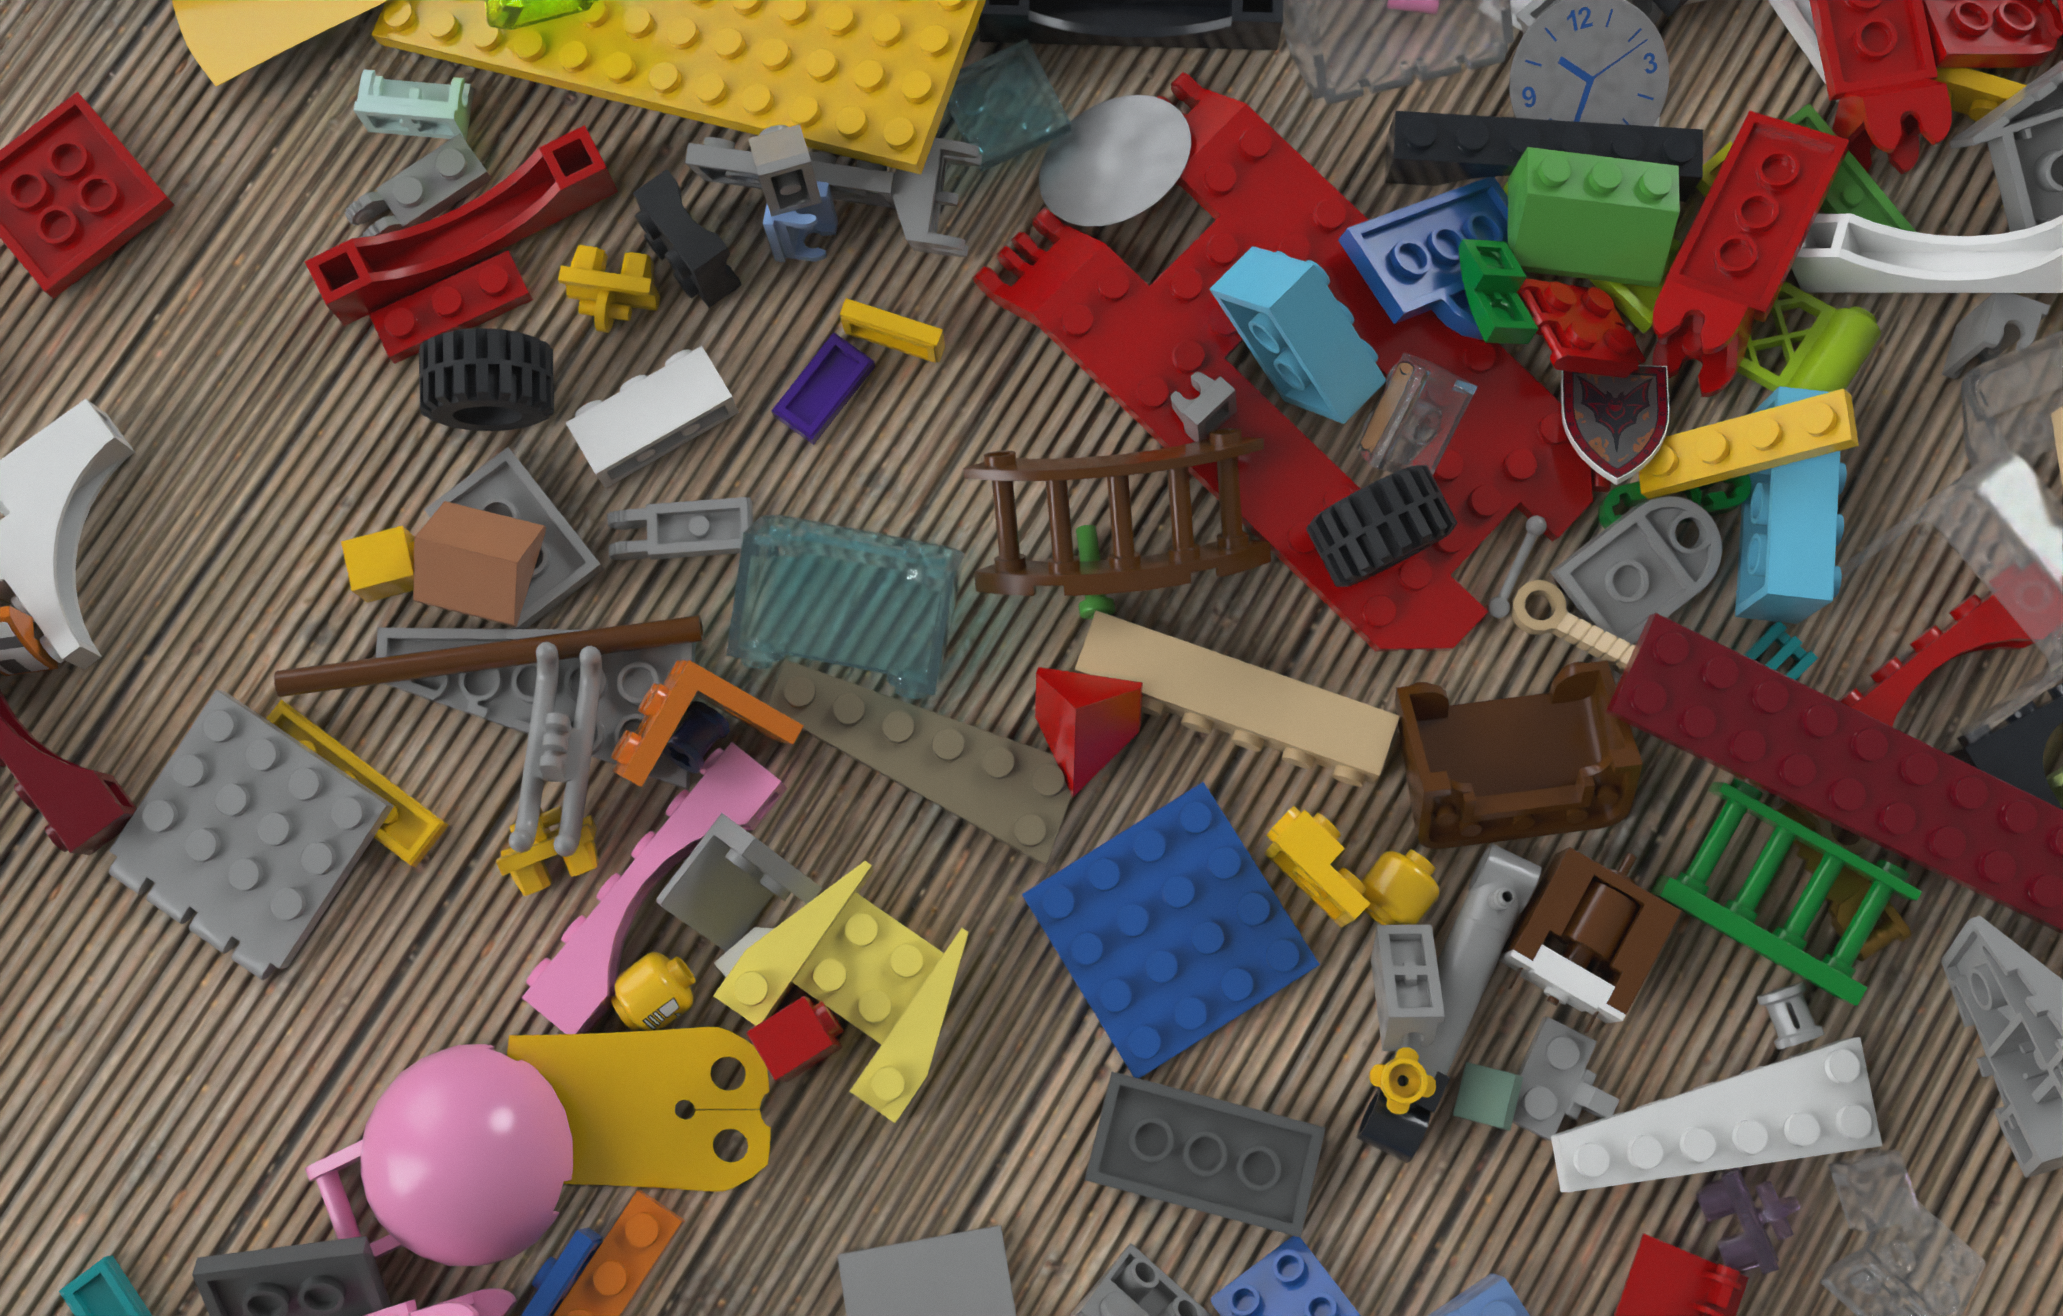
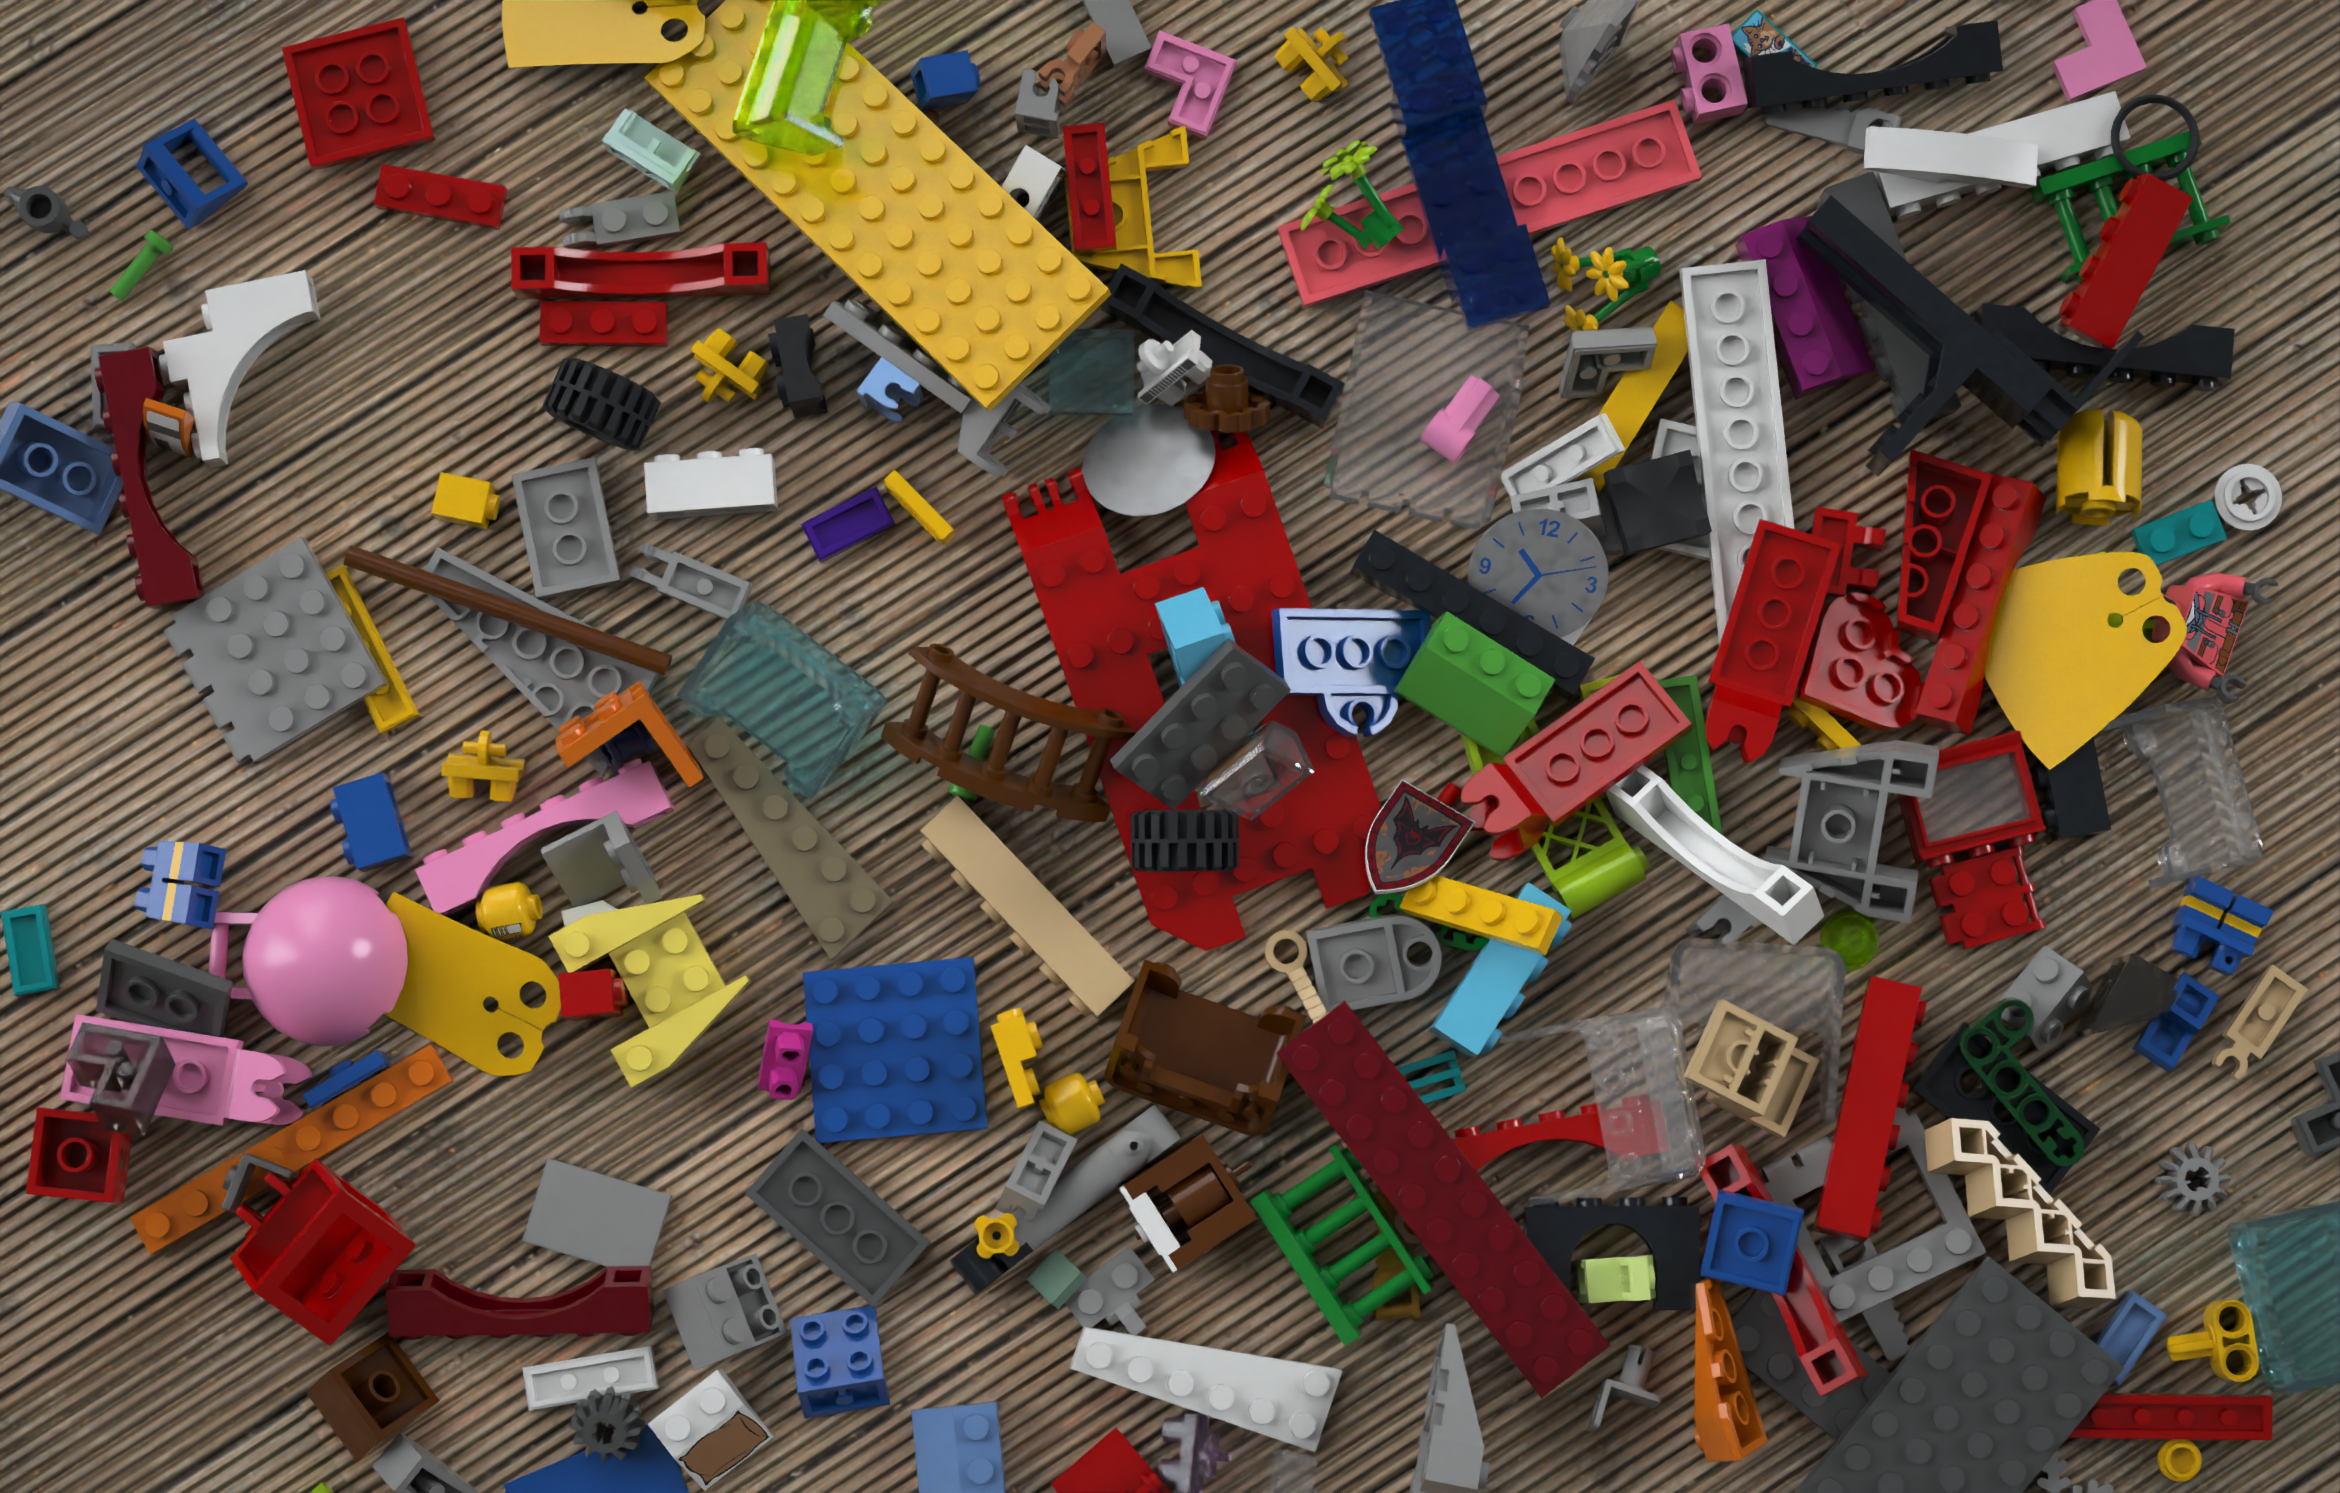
camera: 20 degrees right, 5 degrees up
(207, 260) = (440, 196): none -> red plate
(246, 1168) = (171, 867): none -> hips
(446, 971) = (370, 822): none -> blue brick
(476, 562) = (531, 535): nougat slope -> none
(558, 751) = (523, 706): light grey piece -> none
(784, 169) = (888, 361): light grey slope -> none
(1052, 1001) = (784, 1059): none -> dark pink hips
(1082, 52) = (1166, 363): none -> white hips
(1086, 720) = (911, 871): red slope -> none
(1166, 57) = (1227, 403): none -> reddish brown plant
(1209, 409) = (1111, 690): light grey tile -> none
(1332, 388) = (1200, 724): none -> dark grey plate
(1491, 287) = (1365, 705): green slope -> none
(1498, 605) = (1259, 935): light grey hinge -> none
(1581, 328) = (1423, 763): red plate -> none
(1804, 1024) = (1301, 1331): light grey bush -> none

